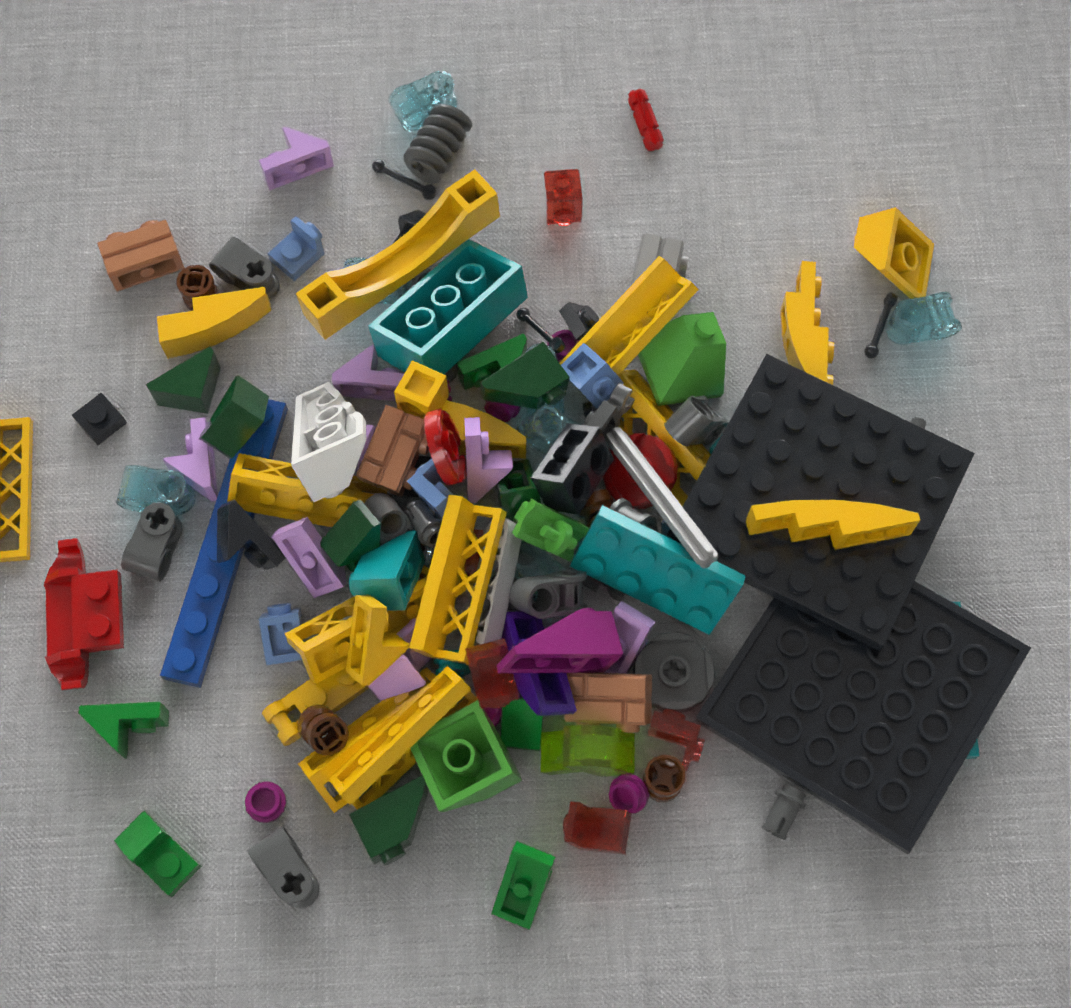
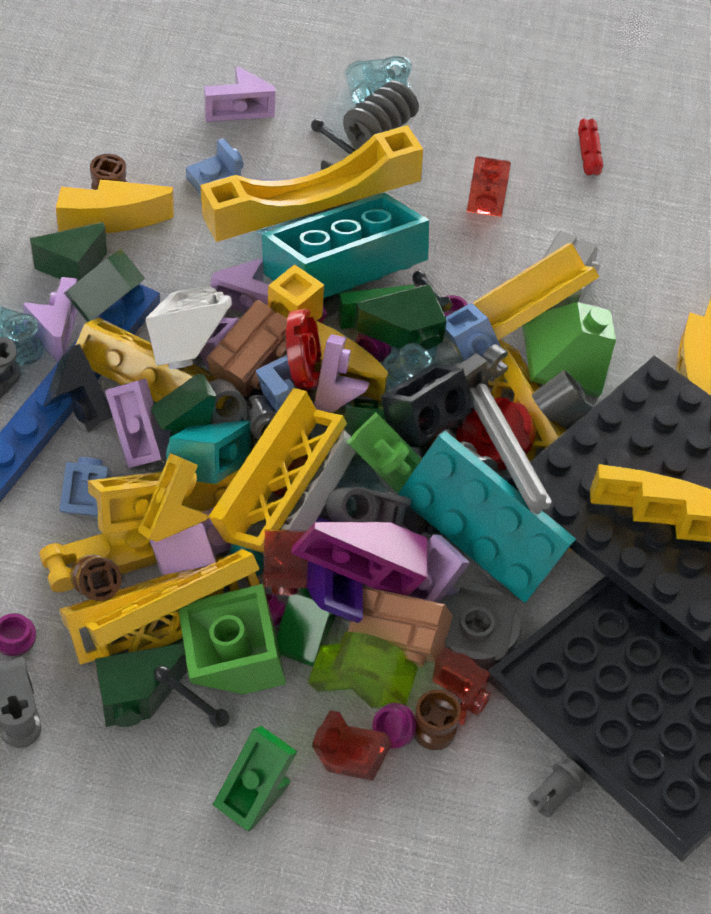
camera: 10 degrees right, 15 degrees down
(140, 254) = (63, 139): nougat brick -> none
(244, 268) = (159, 168): dark grey piece -> none
(470, 828) = (217, 717): none -> black hinge
(579, 318) = (471, 287): black plate -> none

